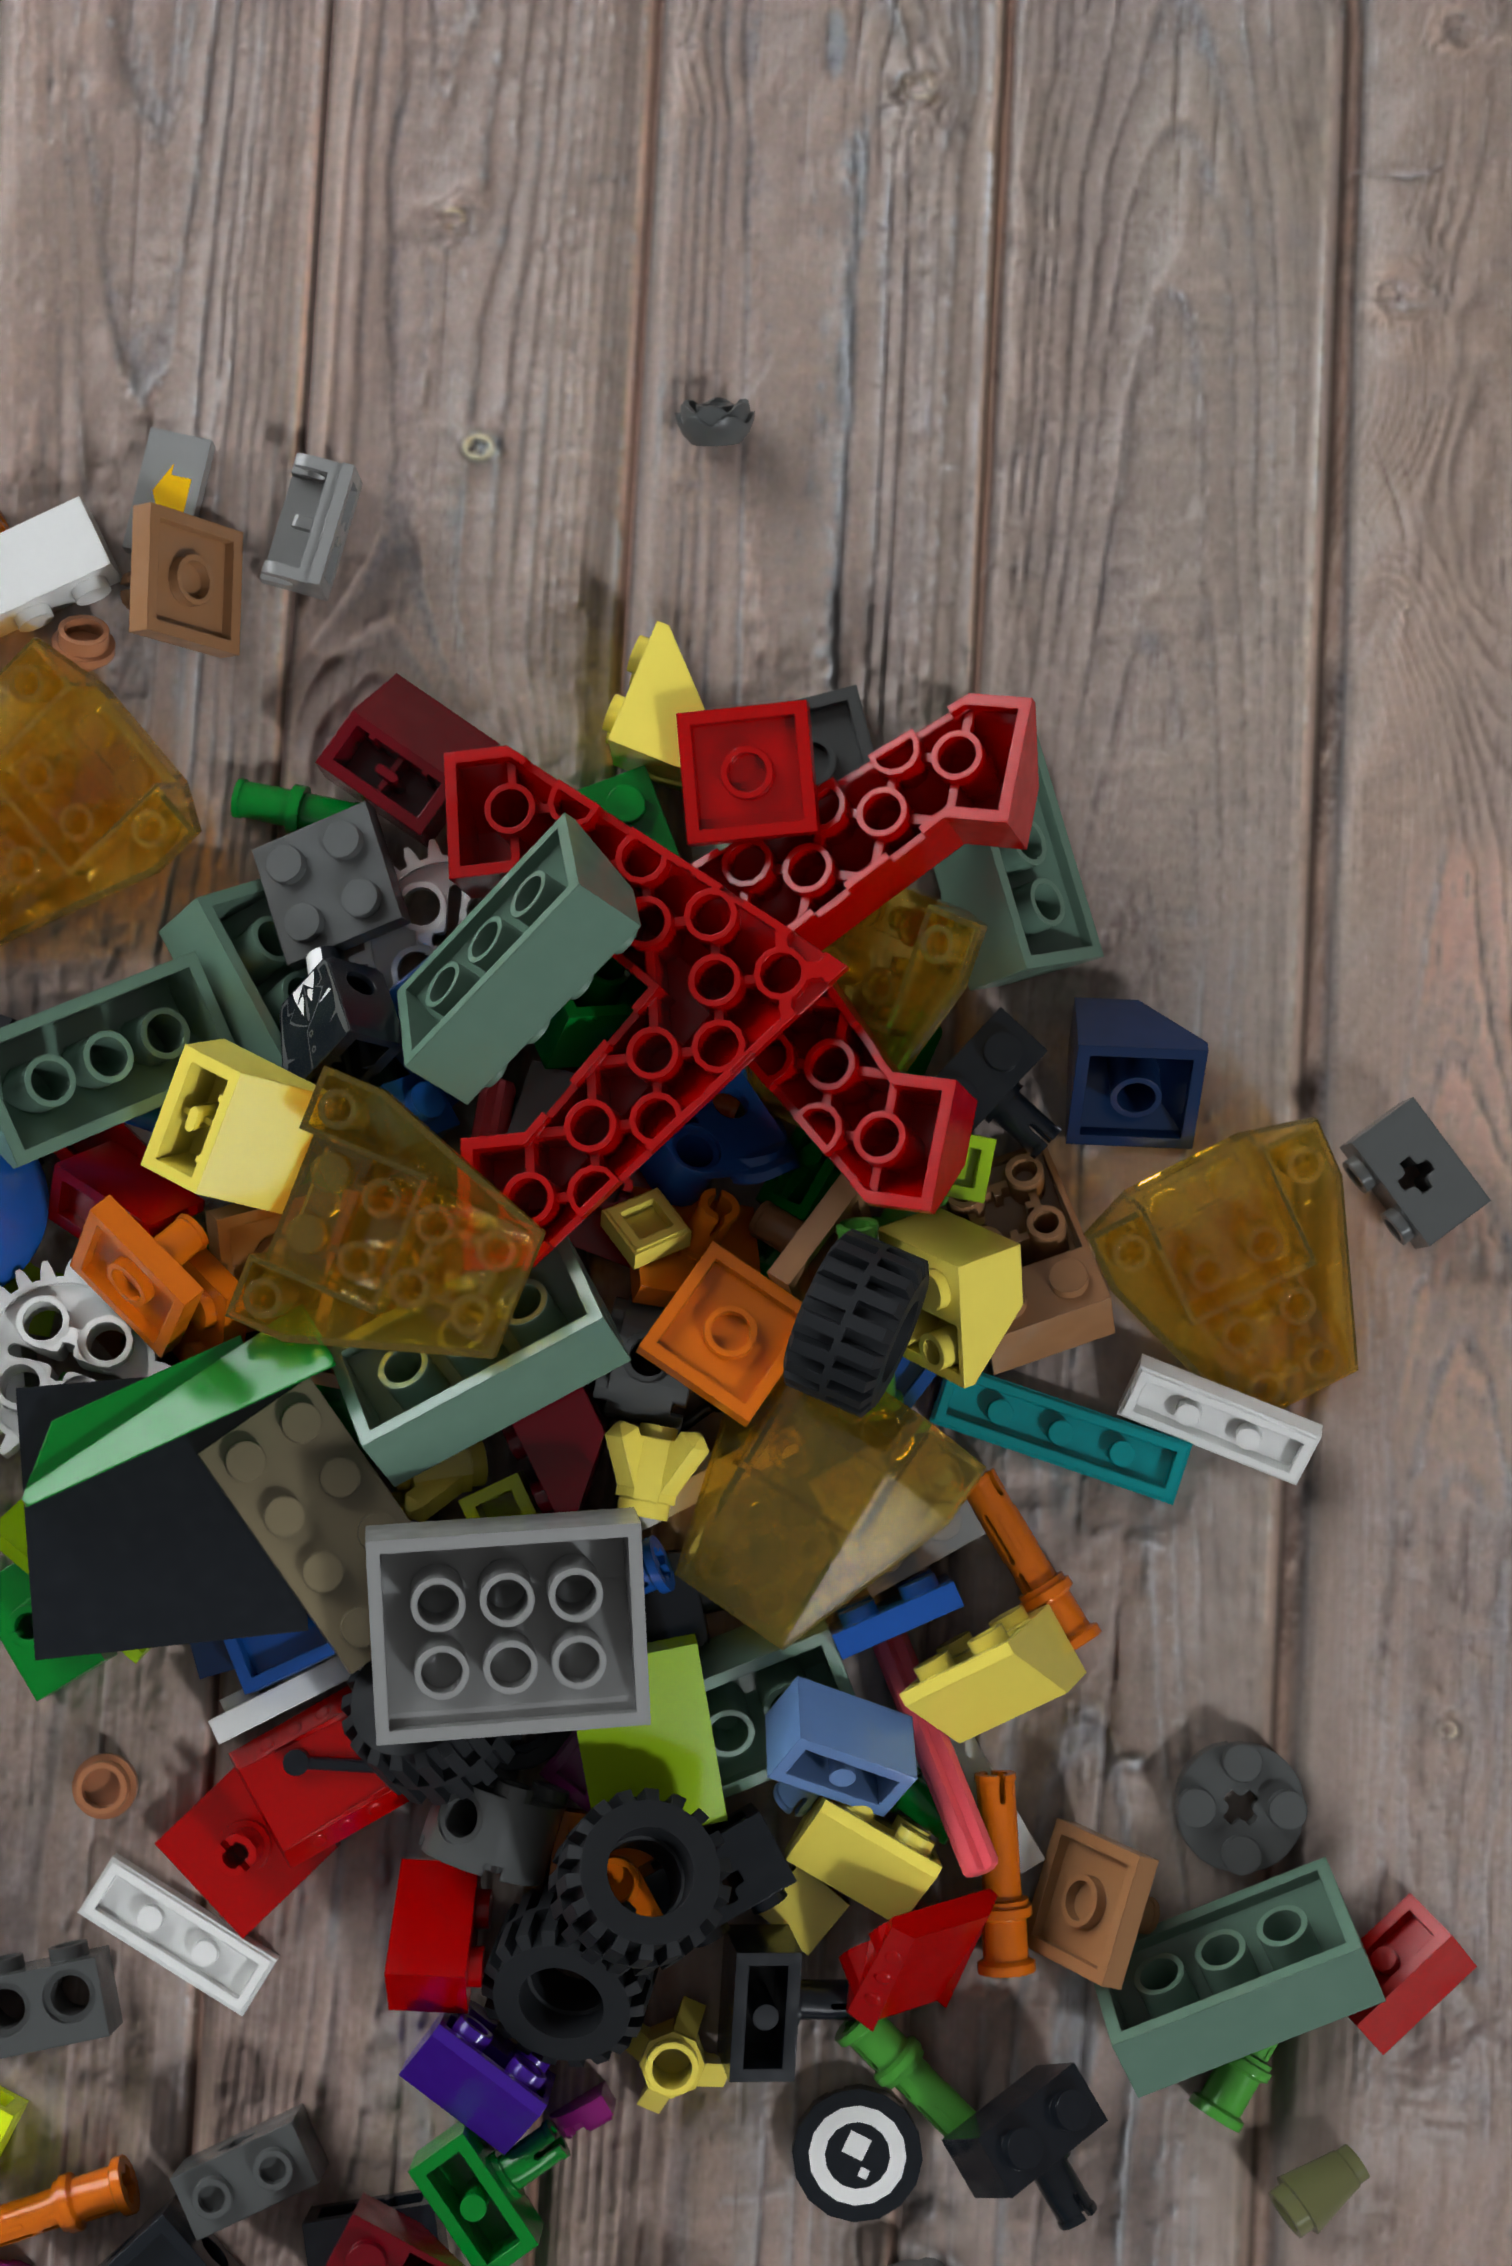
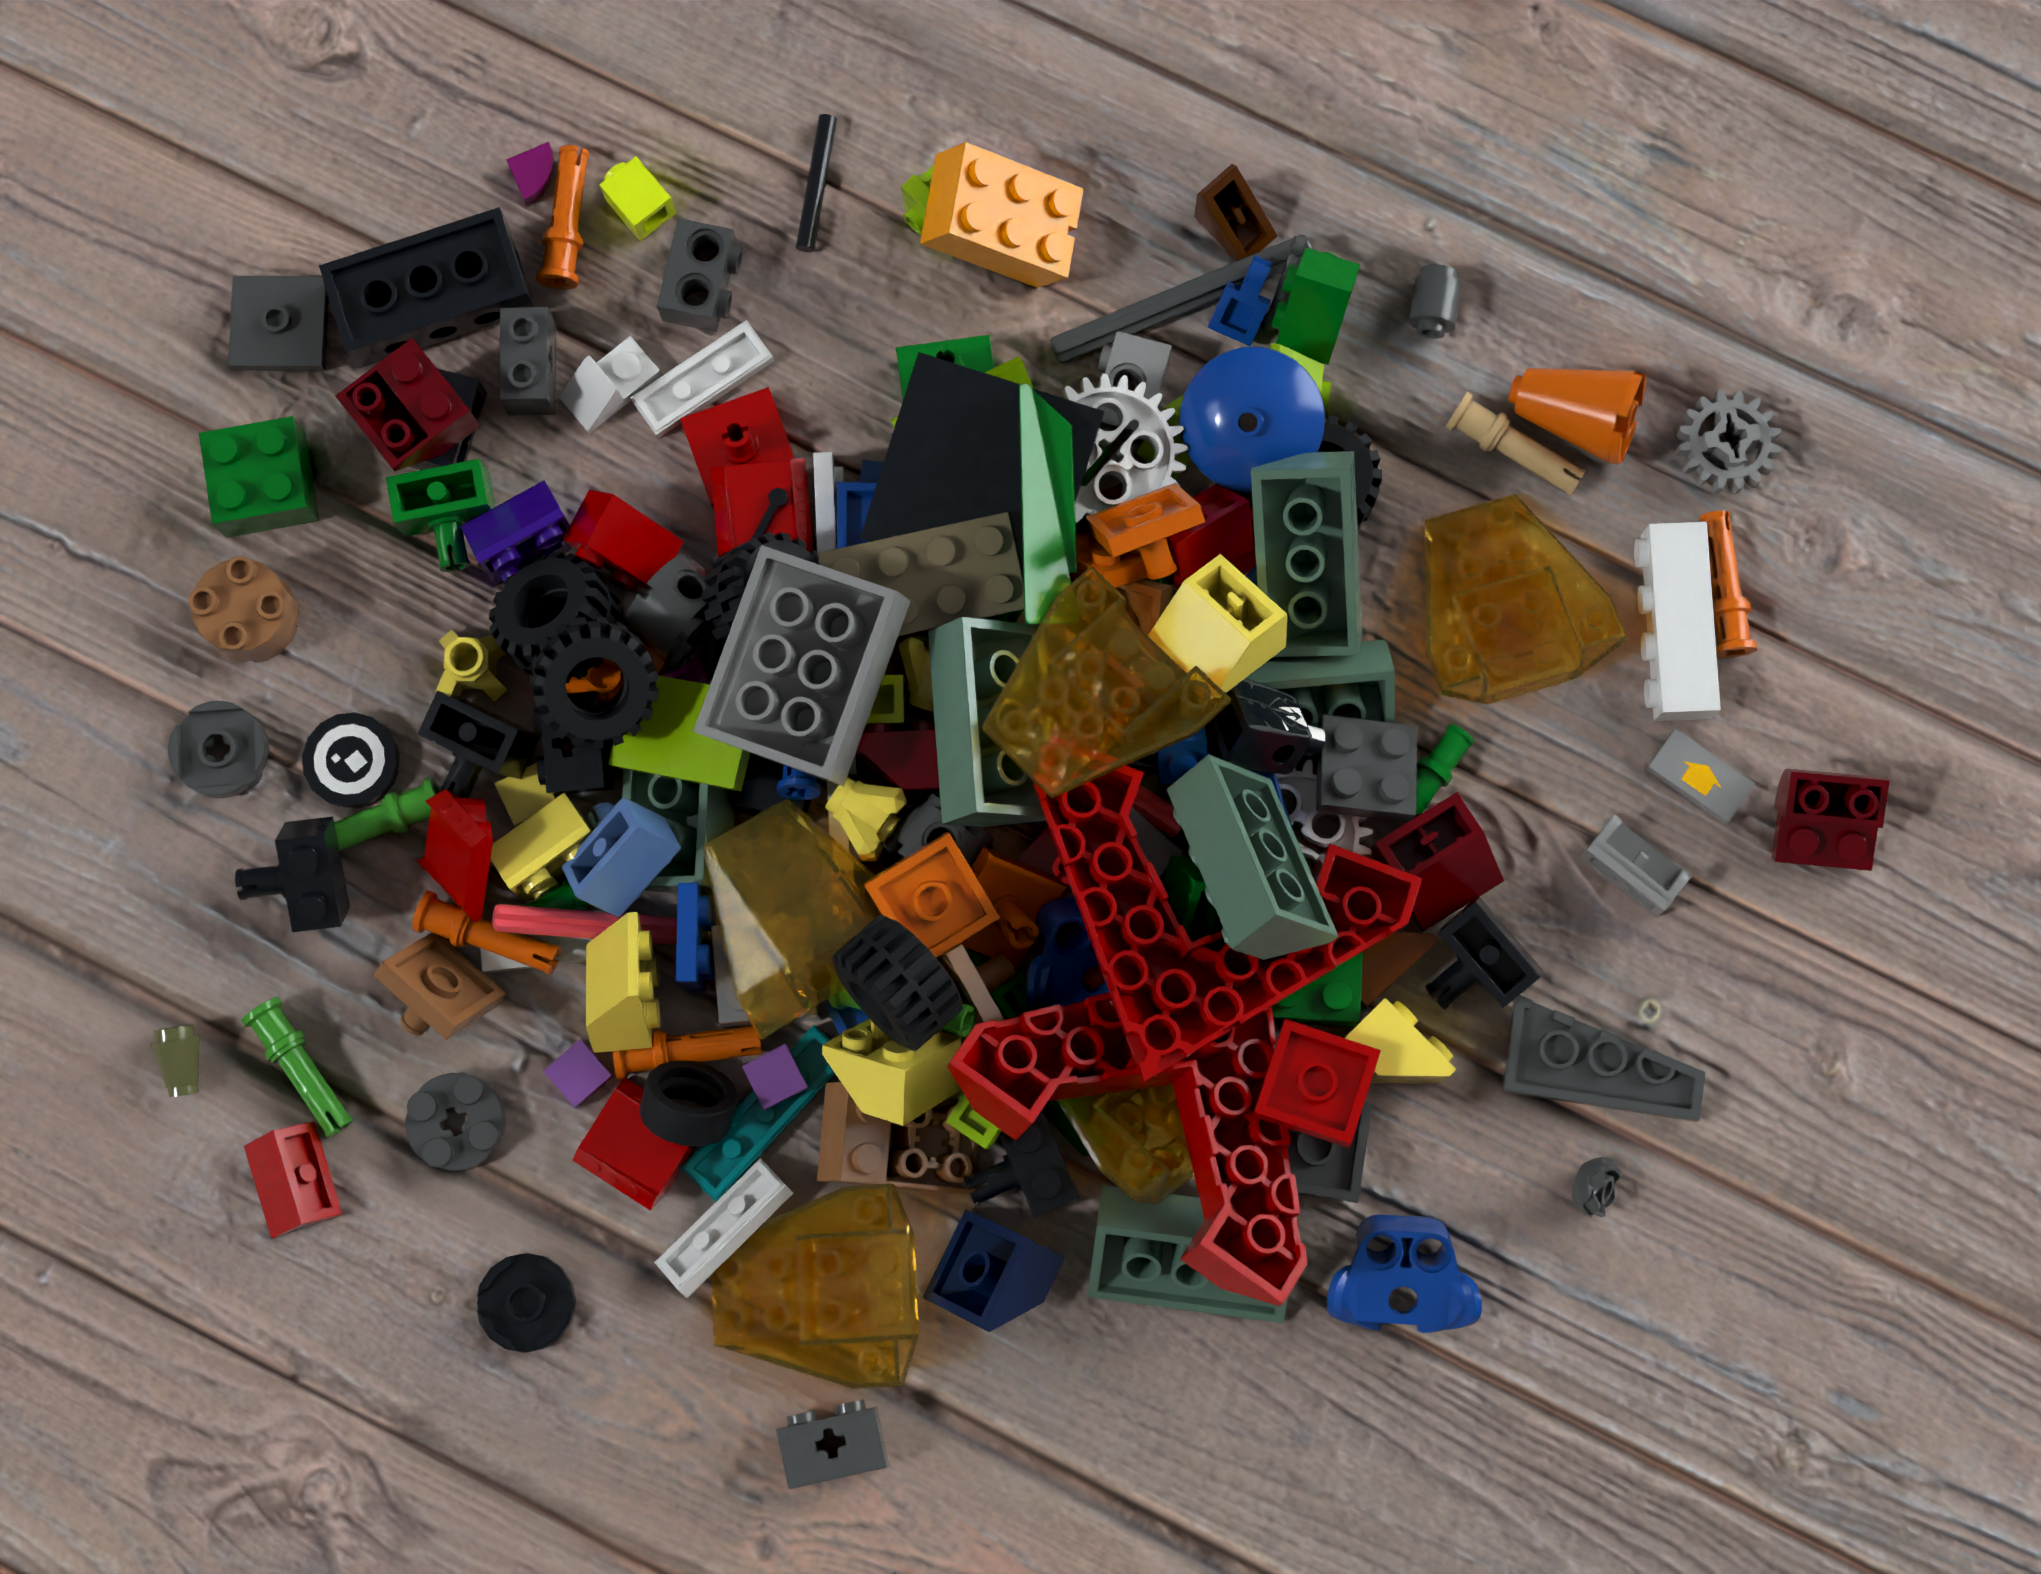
camera: 120 degrees right, 5 degrees down
(84, 641) = (1616, 673): nougat plate -> none
(105, 1786) = (821, 371): nougat plate -> none
(158, 323) = (1828, 818): none -> dark red brick
(184, 581) = (1628, 758): medium nougat tile -> none
(235, 2051) = (606, 386): none -> white slope
(498, 655) = (1485, 955): none -> black brick
(557, 757) = (1390, 960): none -> reddish brown slope
(578, 498) = (1579, 1064): none -> dark grey wing
(587, 2110) = (463, 594): magenta tile -> none
(645, 1228) = (1030, 878): light yellow tile -> none
(915, 545) = (1444, 1294): none -> blue piece
(1015, 1438) = (775, 1077): none -> medium lavender tile
(1114, 1682) = (578, 1073): none -> medium lavender tile
(1129, 1522) = (682, 1123): none -> black tyre
(1166, 1569) = (627, 1152): none -> red slope
(1238, 1978) = (343, 1063): sand green slope -> none
(1411, 1618) = (526, 1302): none -> black tile

